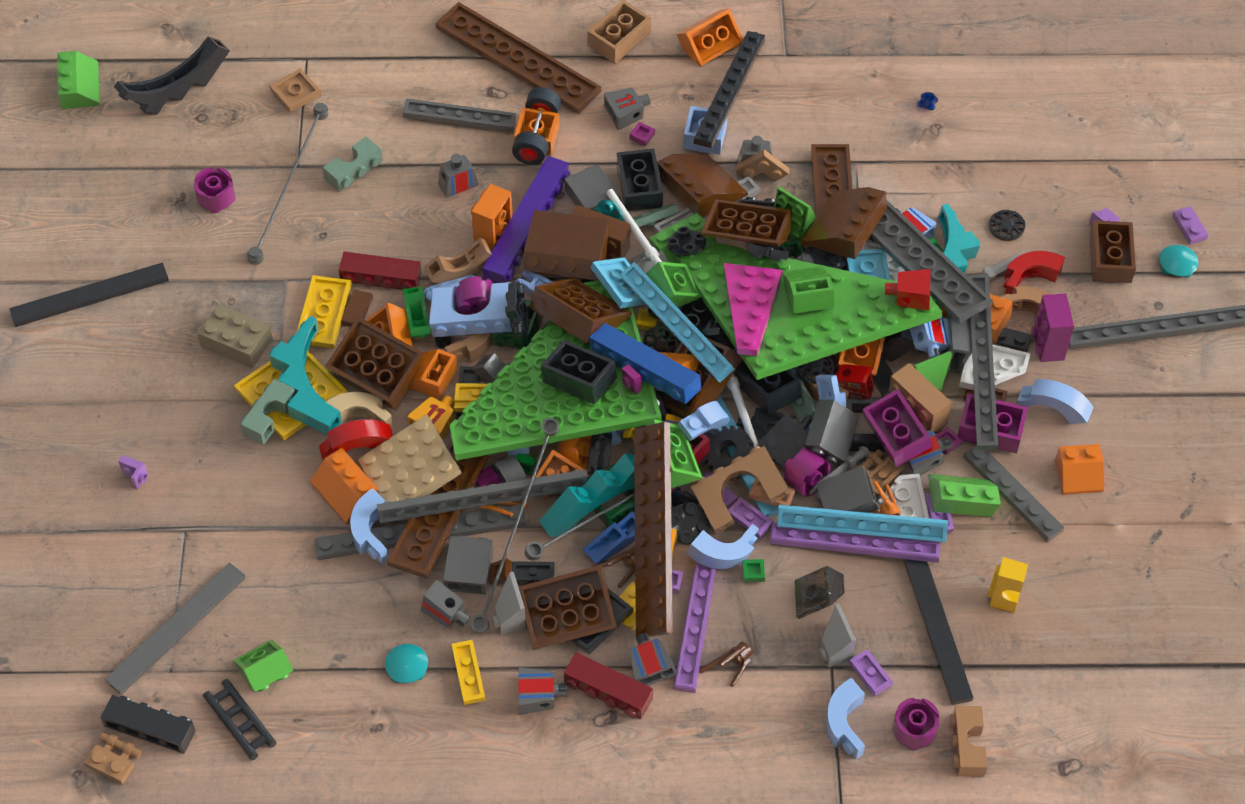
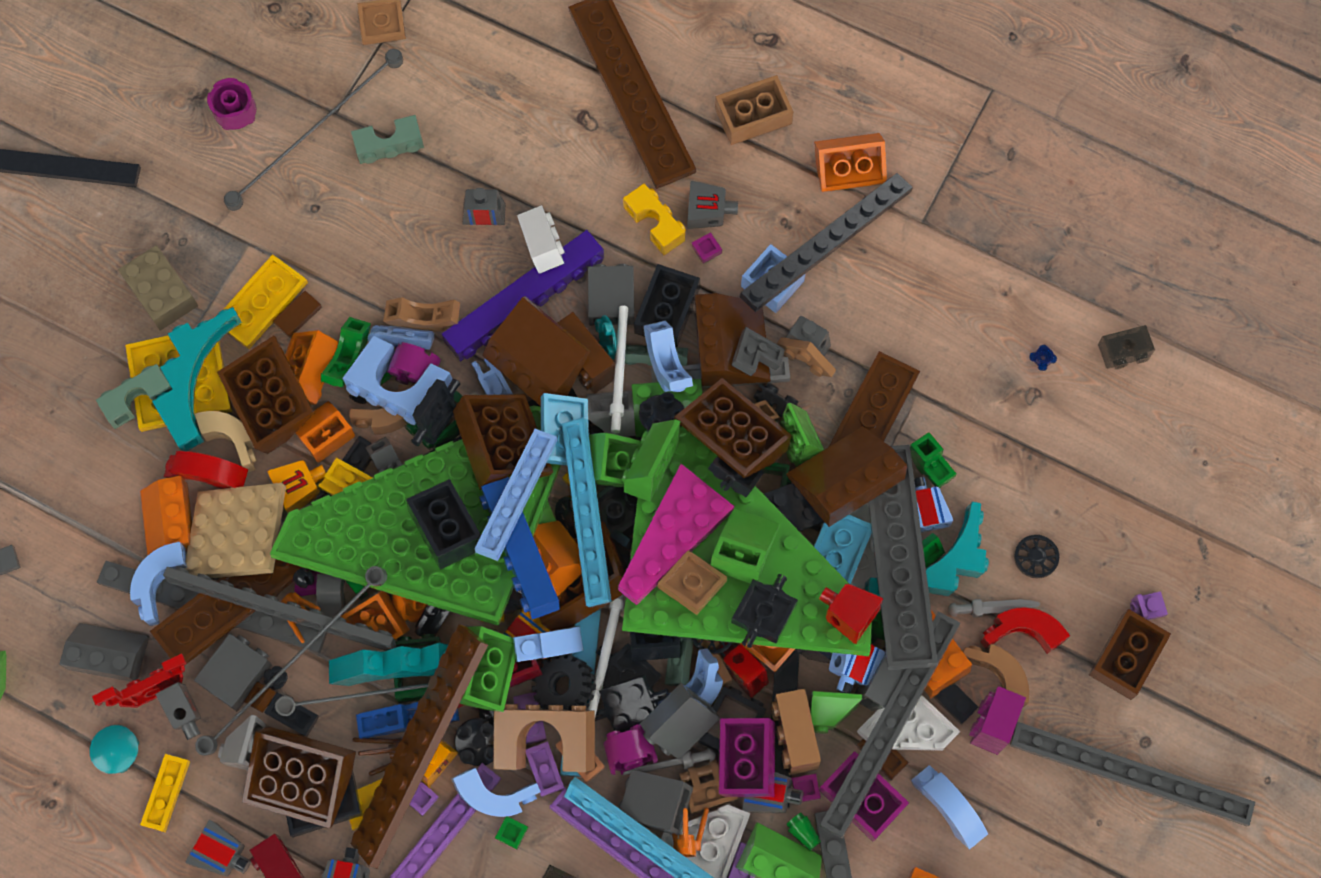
camera: 30 degrees right, 15 degrees up
(357, 602) = (104, 652): none -> dark grey slope
(380, 271) = (342, 283): dark red brick -> none
(407, 606) = (144, 691): none -> red wing
(459, 115) = (530, 132): dark grey plate -> none
(484, 472) = (303, 577): none -> black hinge
(491, 215) = (478, 279): orange brick -> none
(497, 555) = (280, 682): none -> black plate
(518, 175) = (541, 239): none -> white brick
(537, 126) = (595, 190): brick -> none
(579, 124) = (644, 204): none -> yellow arch
(621, 327) = (516, 494): none -> light blue plate
(631, 379) = (493, 565): magenta plate -> none
(663, 207) = (664, 357): none -> light blue arch
(702, 266) = (652, 459): none -> bright green slope
(727, 176) = (756, 348): none -> dark grey plate
(788, 323) = (692, 582): none -> medium nougat plate
(852, 316) = (764, 611): none -> black plate
(895, 194) = (928, 459): none -> green brick
(964, 467) = (803, 831): none -> green cone
(980, 69) = (1134, 339): none -> clear smoke brick
(1178, 261) = (1202, 700): teal dish -> none
(1190, 225) = (1244, 661): medium lavender plate -> none

